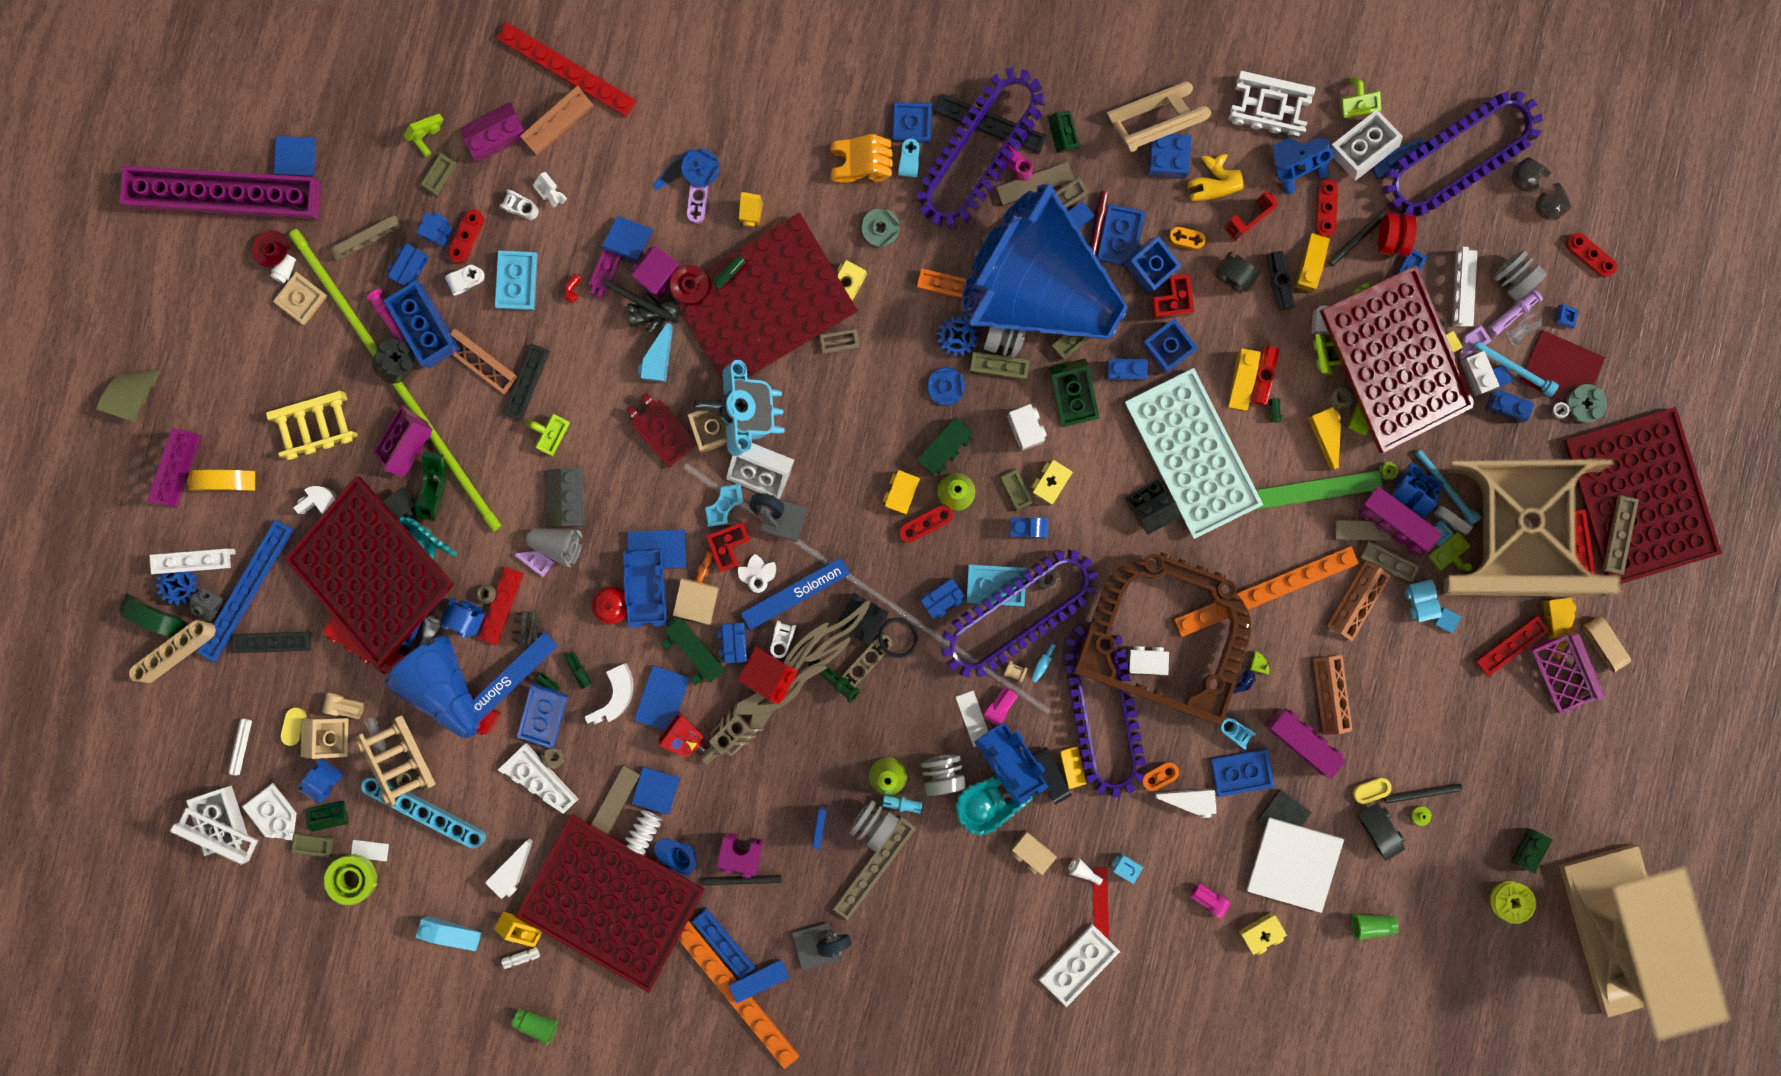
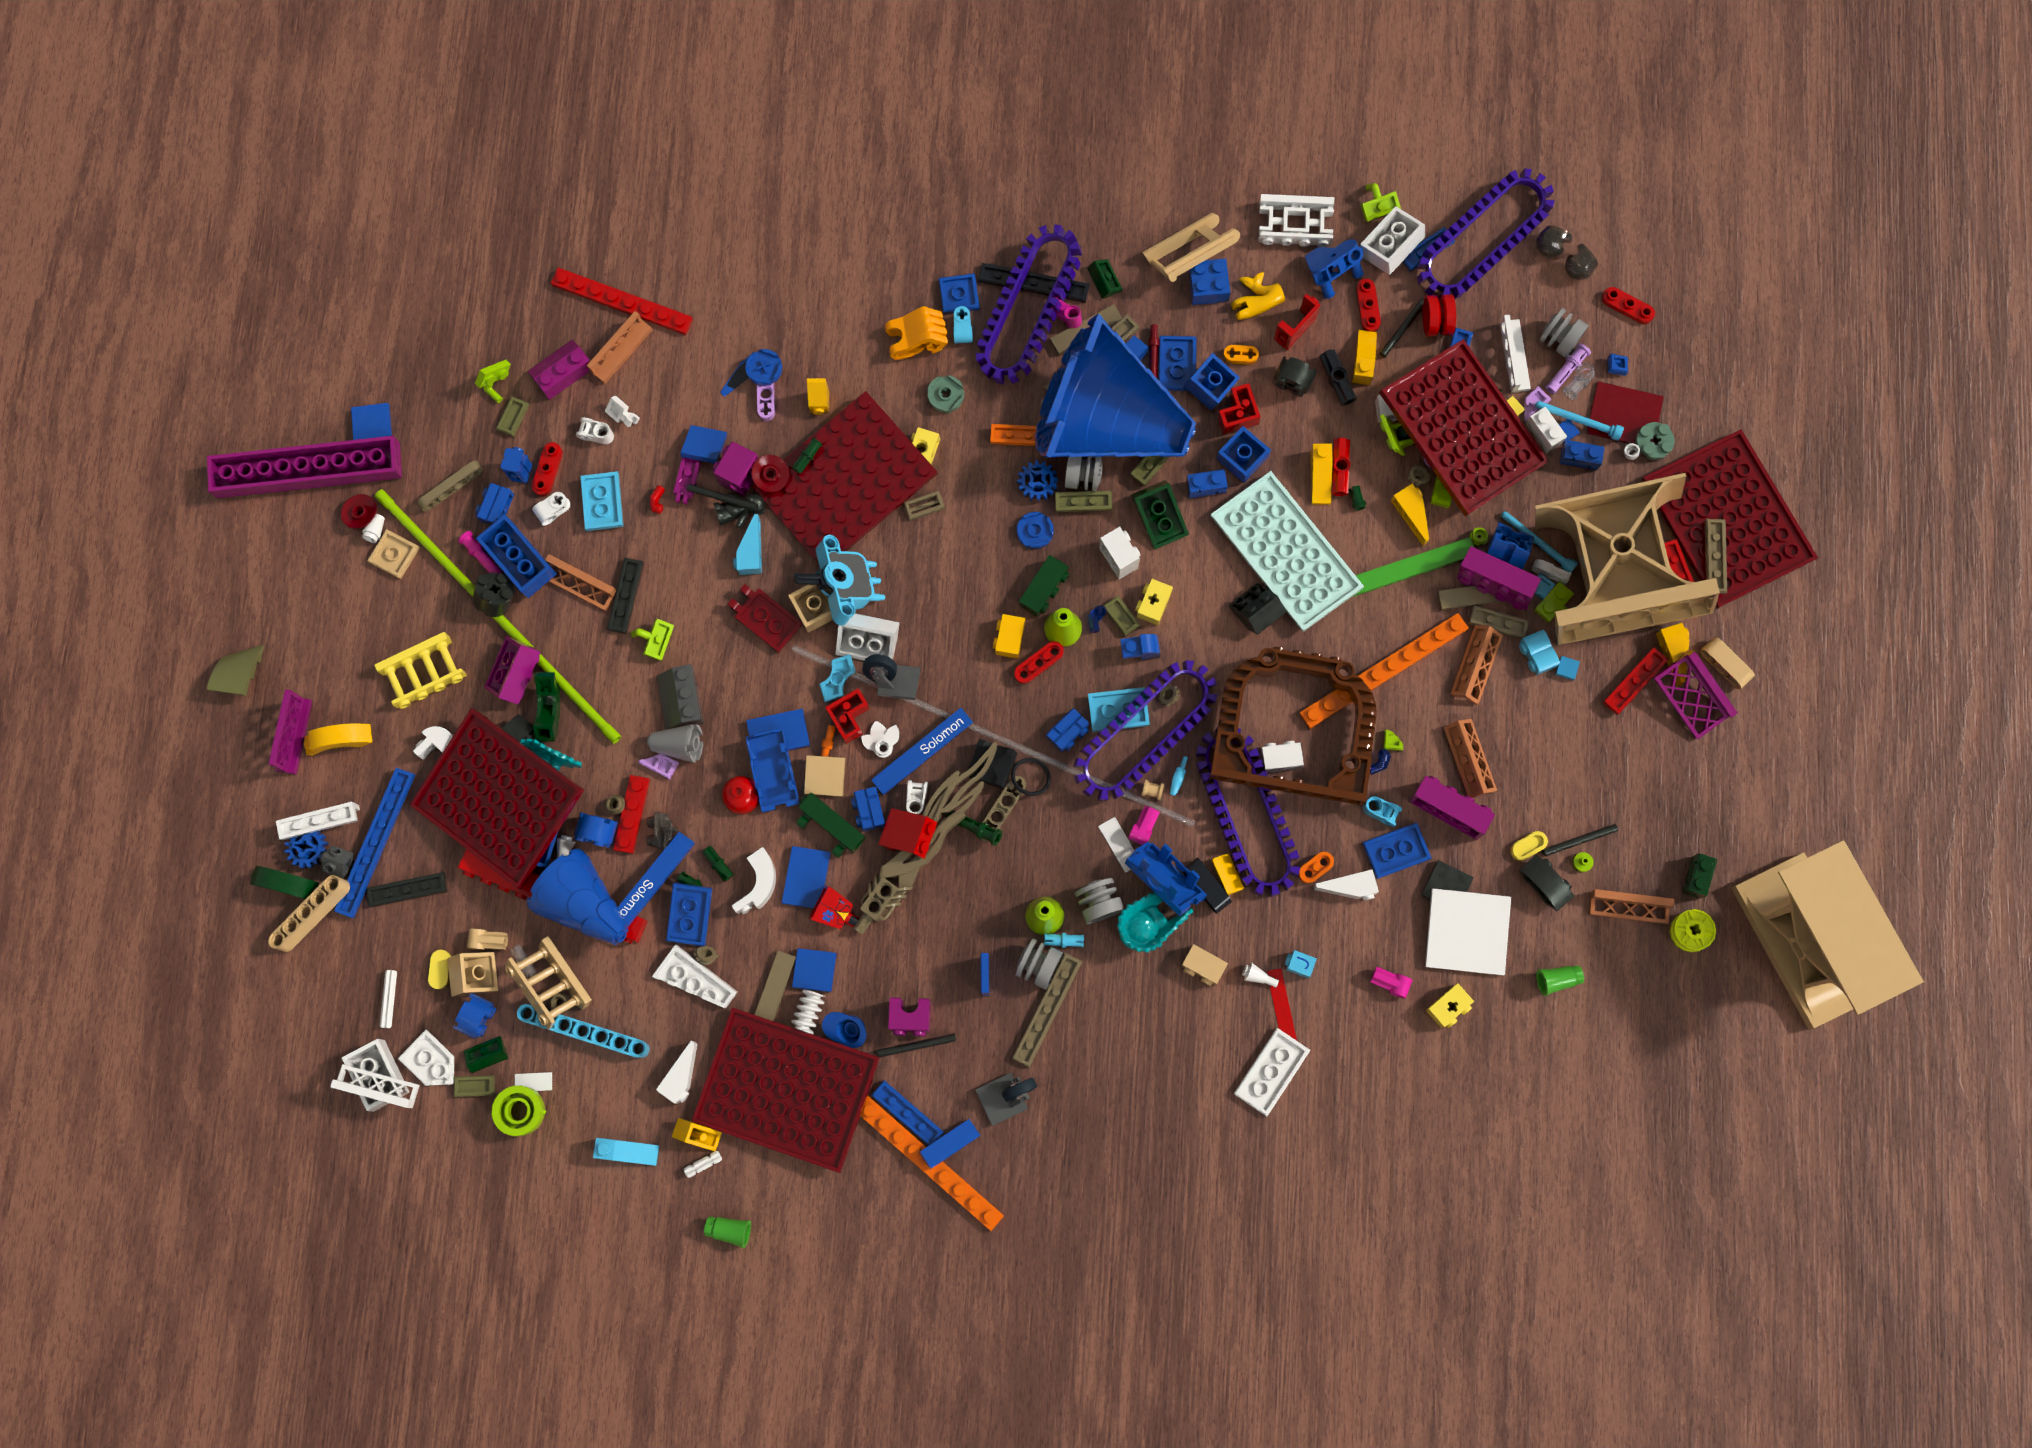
camera: 10 degrees left, 10 degrees down
(989, 486) = (1094, 617): none -> clear blue arm
(1462, 862) = (1634, 900): none -> nougat fence

